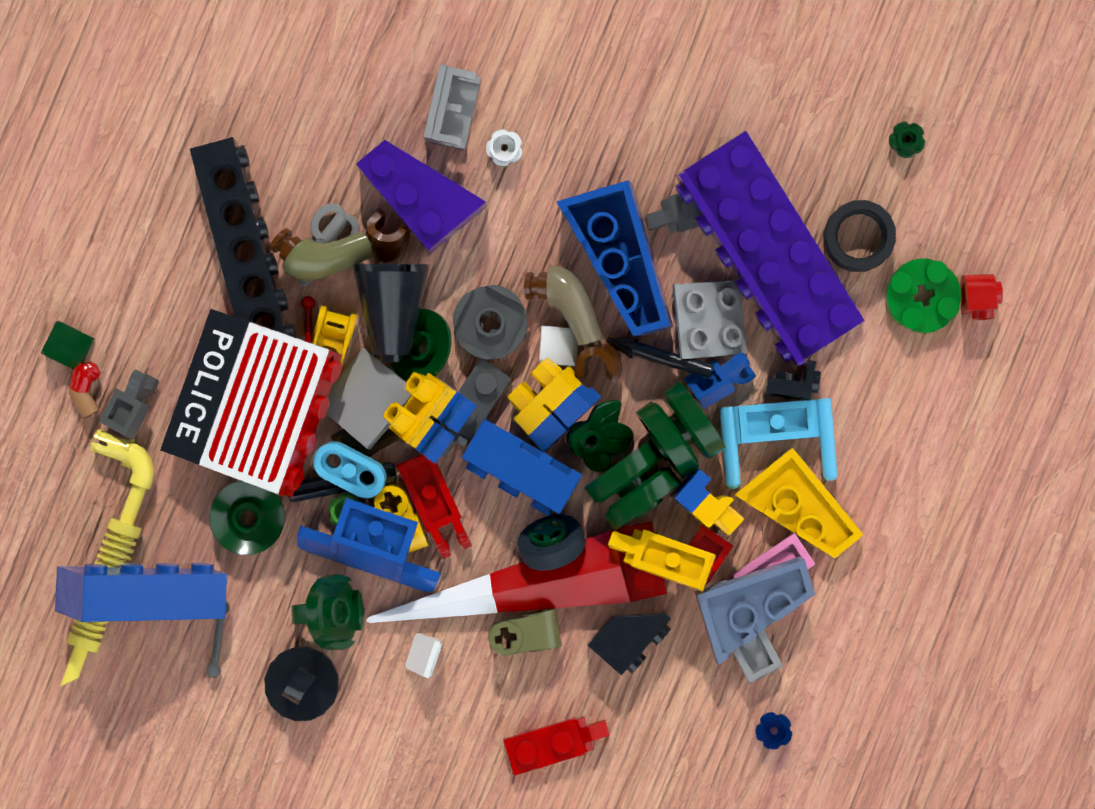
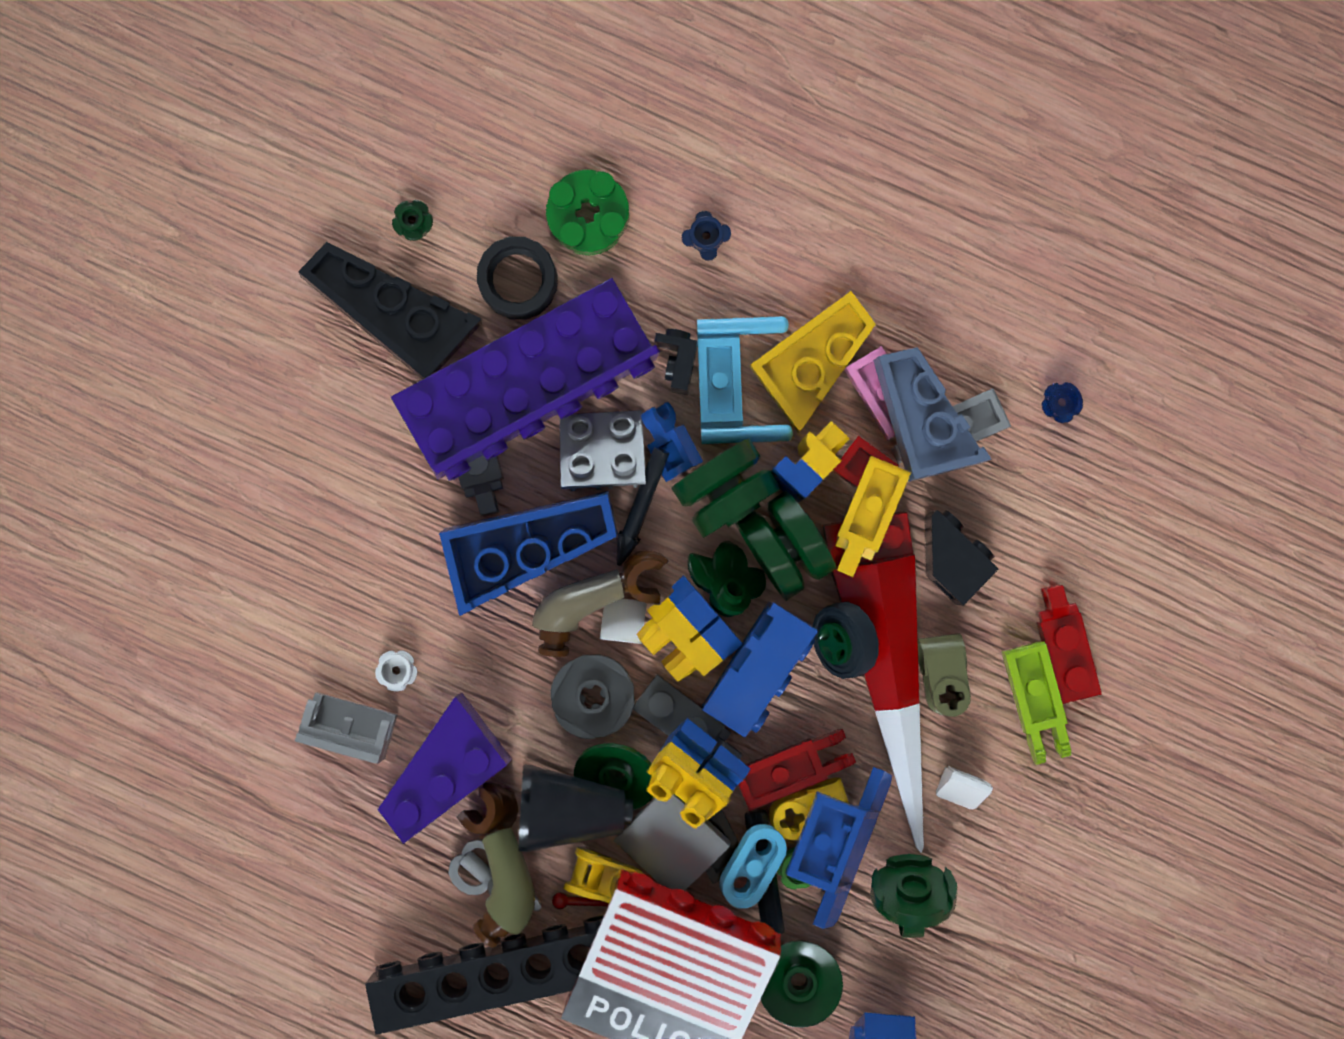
camera: 95 degrees left, 0 degrees up
(214, 669) = (968, 1027): dark grey hinge -> none
(301, 683) = (989, 928): black tile -> none
(508, 717) = (1037, 698): none -> lime hinge
(816, 137) = (402, 319): none -> black wing
(904, 393) = (707, 247): none -> dark blue plate
(980, 295) = (591, 147): red plate -> none

